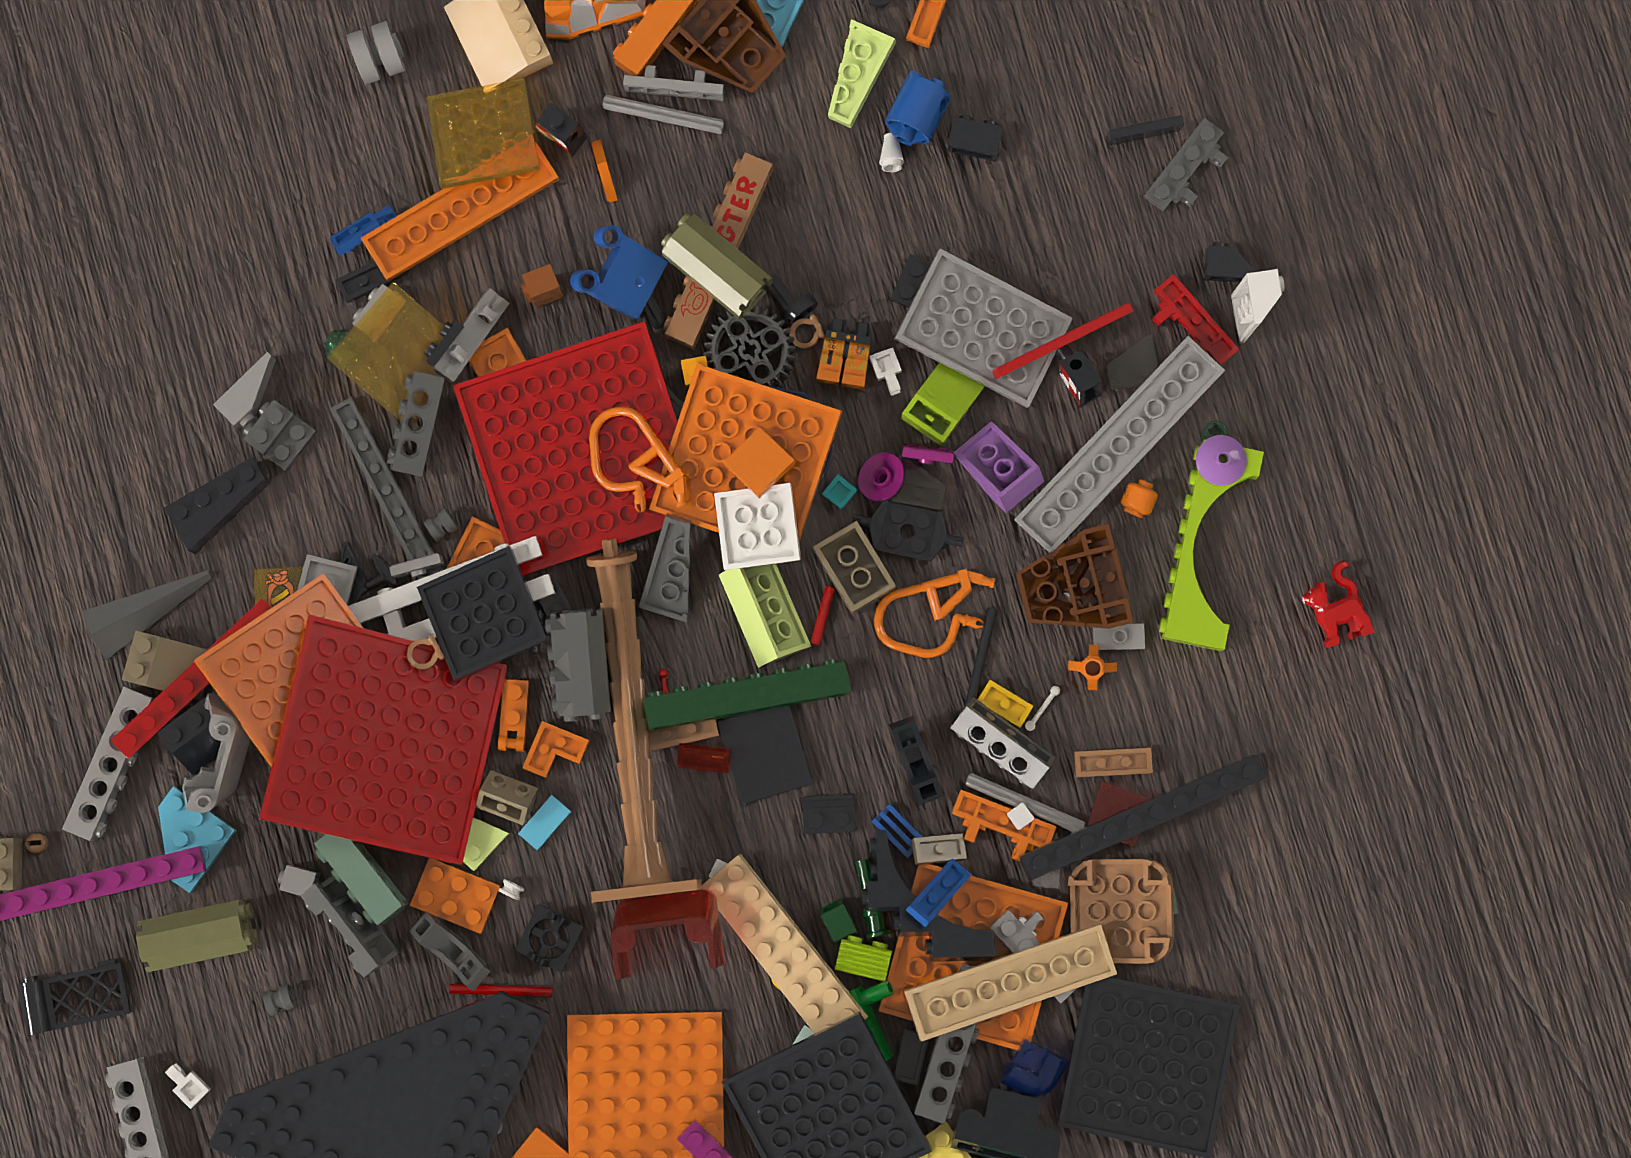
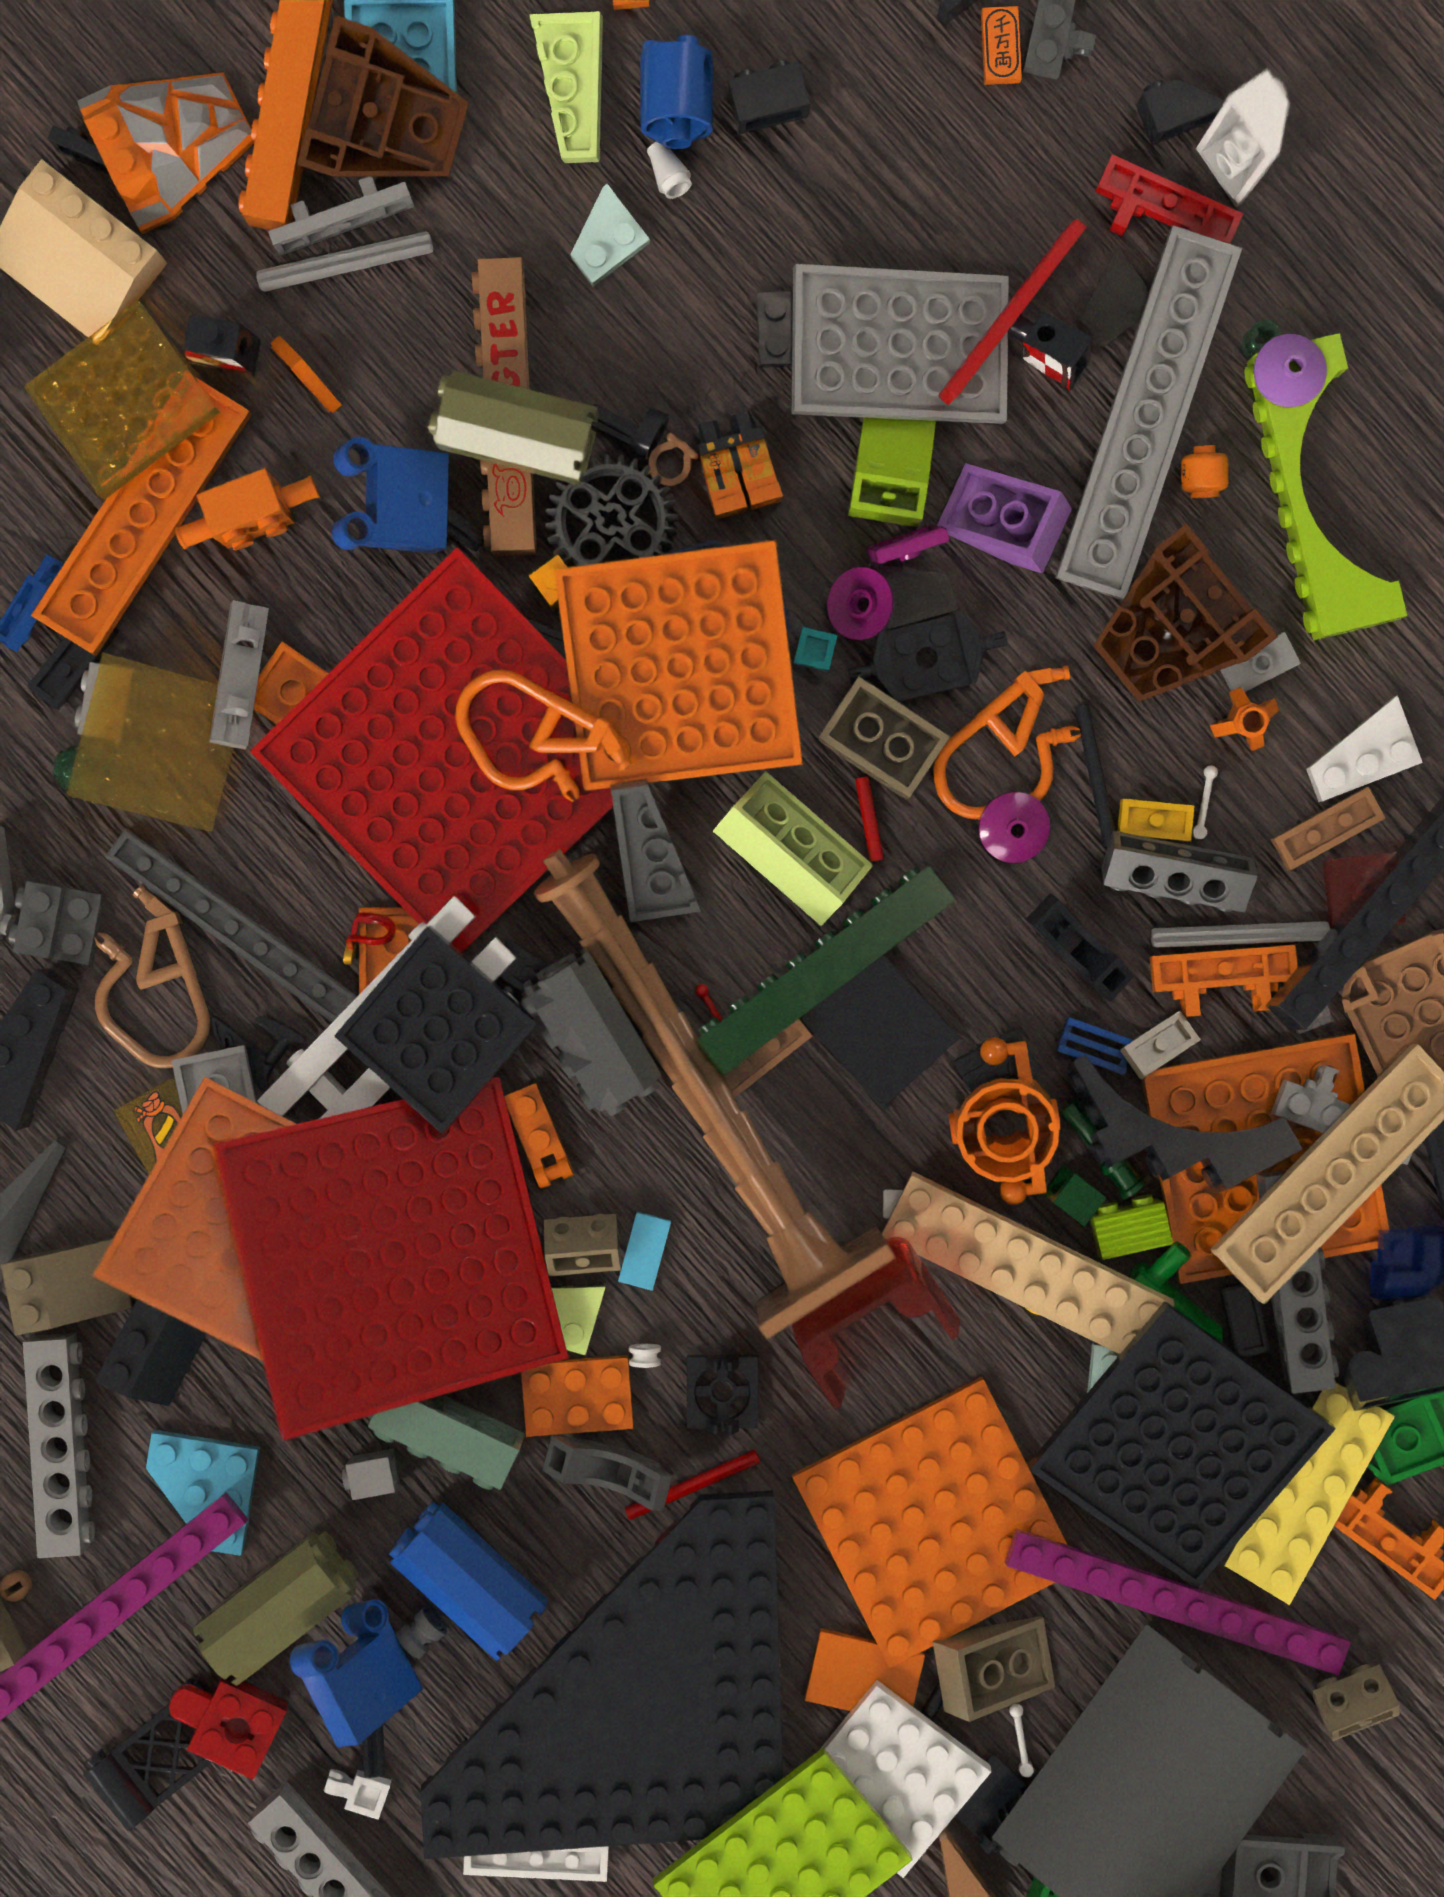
camera: 30 degrees left, 5 degrees up
(129, 996) = (230, 1724): none -> red brick
(174, 697) = (95, 1320): red plate -> none
(216, 785) = (201, 1410): light grey windscreen -> none
(225, 1010) = (361, 1683): none -> blue piece
(326, 977) = (467, 1579): none -> blue brick
(349, 467) = (145, 978): none -> medium nougat piece
(368, 940) = (499, 1514): dark grey piece -> none
(415, 462) = (250, 874): dark grey brick -> none
(417, 566) = (321, 1008): light grey plate -> none
(431, 641) = (387, 1097): medium nougat piece -> none
(436, 350) = (204, 717): black plate -> none
(440, 525) = (324, 939): dark grey wheel -> none
(460, 532) = (362, 917): none -> red piece
(526, 237) = (246, 510): none -> orange brick
(541, 286) = (299, 565): dark orange brick -> none
(552, 742) = (604, 1145): orange plate -> none
(703, 758) = (806, 1073): clear red plate -> none
(757, 529) = (738, 746): white plate -> none
(759, 462) = (701, 661): orange tile -> none
(809, 873) = (1013, 1156): none -> orange piece
(833, 176) = (607, 238): none -> light aqua wing
(886, 367) = (797, 457): white plate -> none
(915, 652) = (1002, 815): none -> magenta dish
(938, 892) = (1192, 1103): blue plate -> none
(1020, 816) = (1244, 953): white sticker -> none
(1136, 174) = (1001, 45): none -> orange tile
(1162, 727) = (1367, 754): none -> white wing

